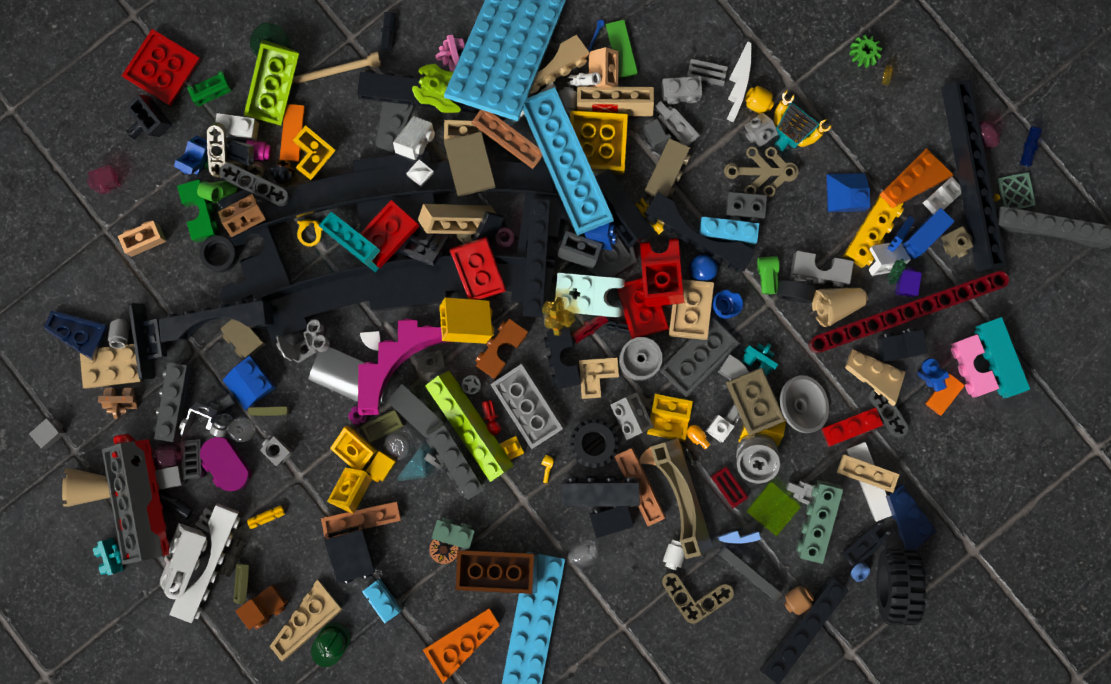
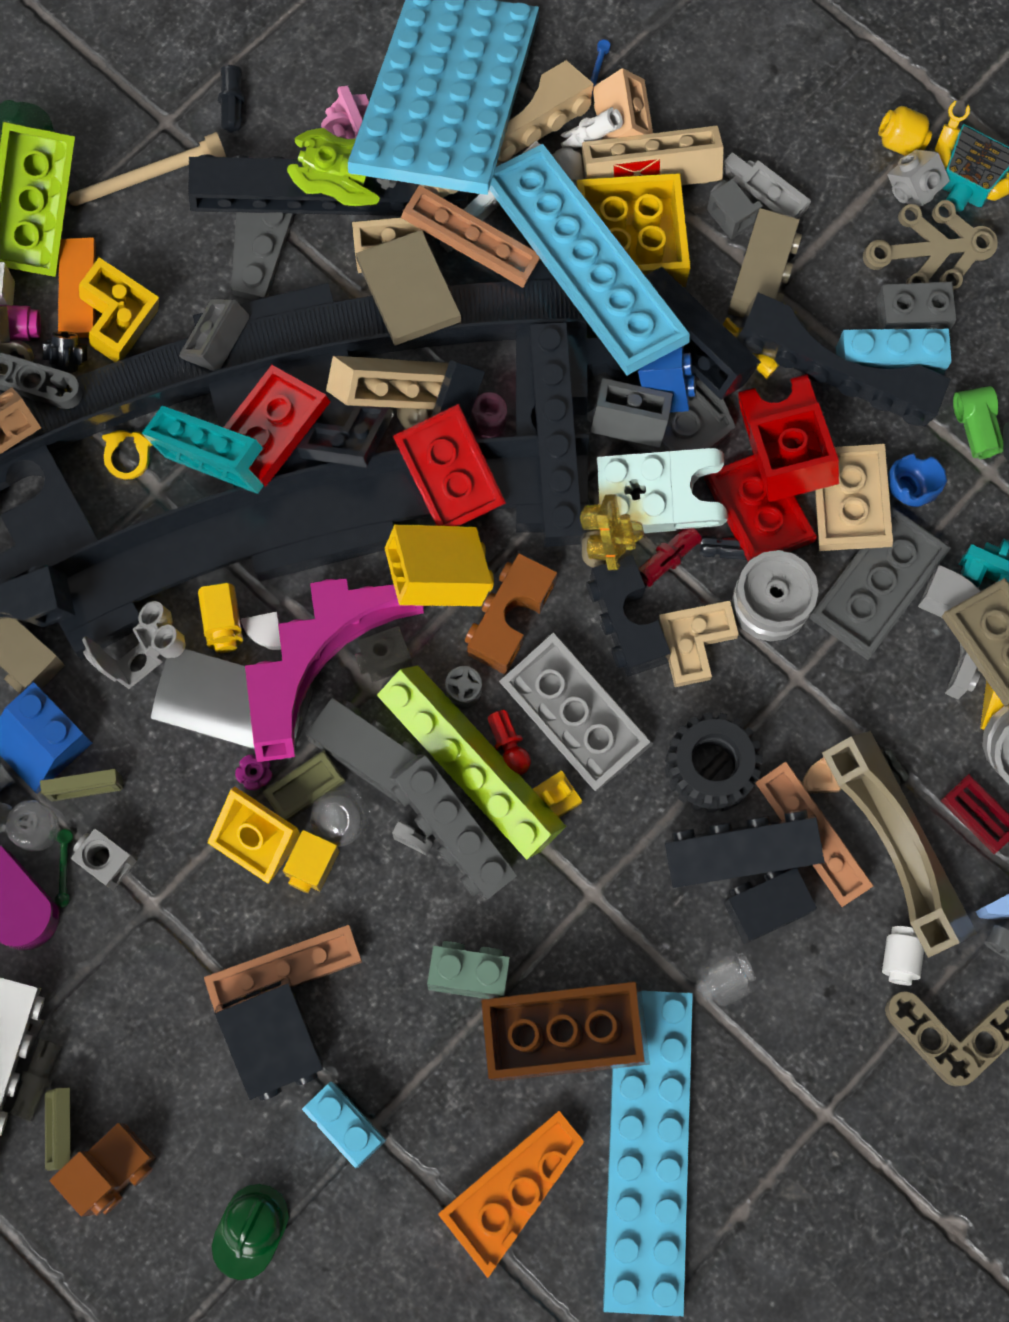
camera: 10 degrees left, 10 degrees down
(257, 436) = (64, 837): none -> dark green hinge
(266, 517) = (95, 991): yellow axle -> none
(311, 616) = (206, 1176): tan wing -> none
(349, 333) = (220, 617): none -> yellow brick
(350, 489) = (256, 913): yellow slope -> none
(363, 174) = (215, 334): none -> flat silver slope
(414, 137) = (300, 263): white brick -> none
(415, 468) = (376, 857): clear light blue slope -> none
(420, 173) = (319, 318): white tile -> none
(443, 552) = (451, 1013): piece -> none
(548, 462) = (630, 812): yellow hand -> none
(620, 42) = (638, 58): bright green tile -> none
(631, 415) = (776, 702): light grey brick -> none
(670, 417) = (845, 698): yellow slope -> none
(681, 90) = (766, 129): light grey brick -> none
(697, 436) = (905, 725): light orange cylinder -> none
(703, 268) = (859, 424): blue hair -> none
(708, 72) = (803, 96): light grey tile -> none
(719, 428) = (944, 705): white brick -> none
(740, 76) = (865, 102): white slope -> none

